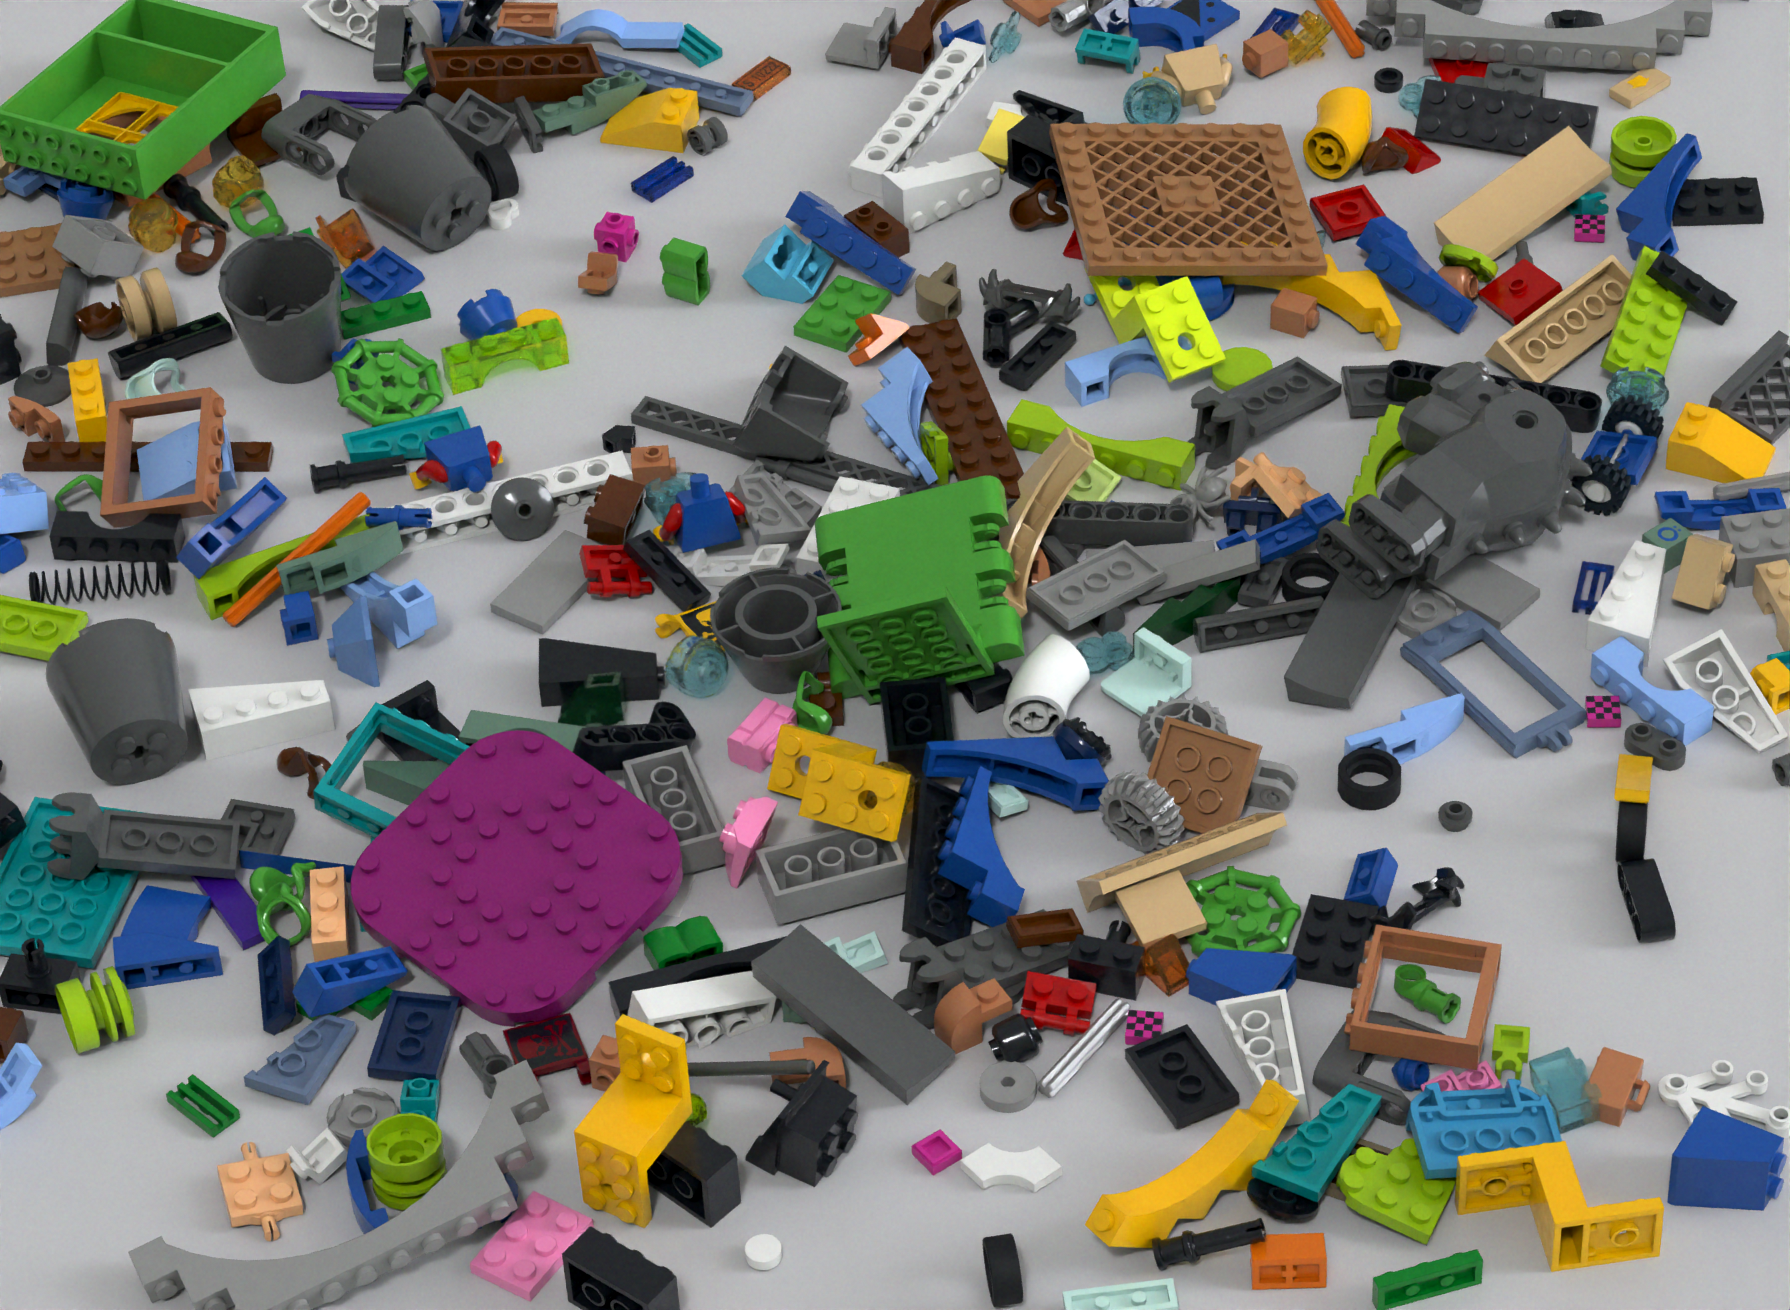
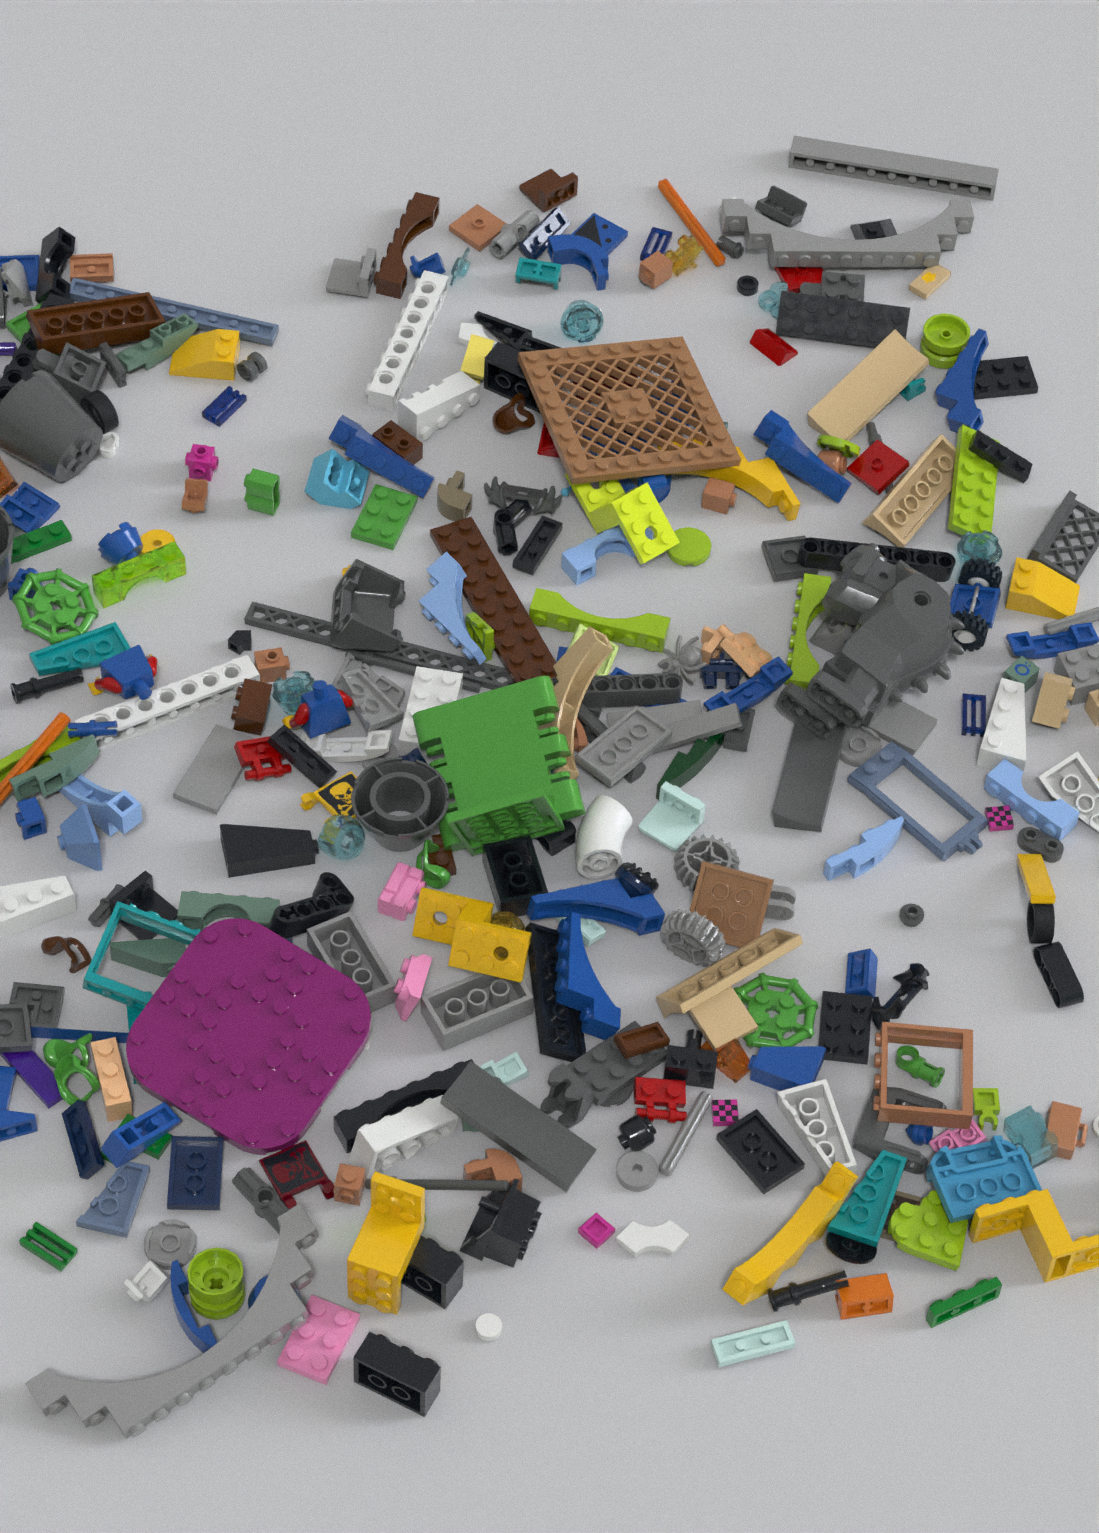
camera: 15 degrees left, 10 degrees up
(260, 1190) = (107, 1314): light nougat plate -> none
(420, 1097) = (210, 1229): teal slope -> none
(506, 508) = (173, 705): dark grey dish -> none
(596, 700) = (270, 874): clear green slope -> none
(626, 33) = (172, 277): light blue piece -> none
(679, 944) = (379, 1077): green brick -> none
(700, 44) = (226, 282): teal tile -> none
(763, 77) = (282, 310): clear orange tile -> none
(878, 334) = (417, 539): orange slope -> none
(963, 1011) = (598, 1114): nougat brick -> none
(1002, 1270) = (667, 1328): black tyre -> none
(1106, 652) = (637, 797): clear light blue plate -> none
(1196, 75) = (608, 292): tan torso -> none
(1255, 624) = (742, 765): dark grey brick -> none
(1256, 407) = (709, 581): dark grey hinge -> none
(1306, 566) = (767, 739): black tyre -> none
(1339, 132) = (724, 338): yellow brick -> none
(1346, 211) = (740, 404): red plate -> none
(1372, 761) = (843, 905): black tyre -> none
(1382, 156) = (756, 353): reddish brown piece -> none
(1589, 228) = (916, 406): dark pink tile -> none

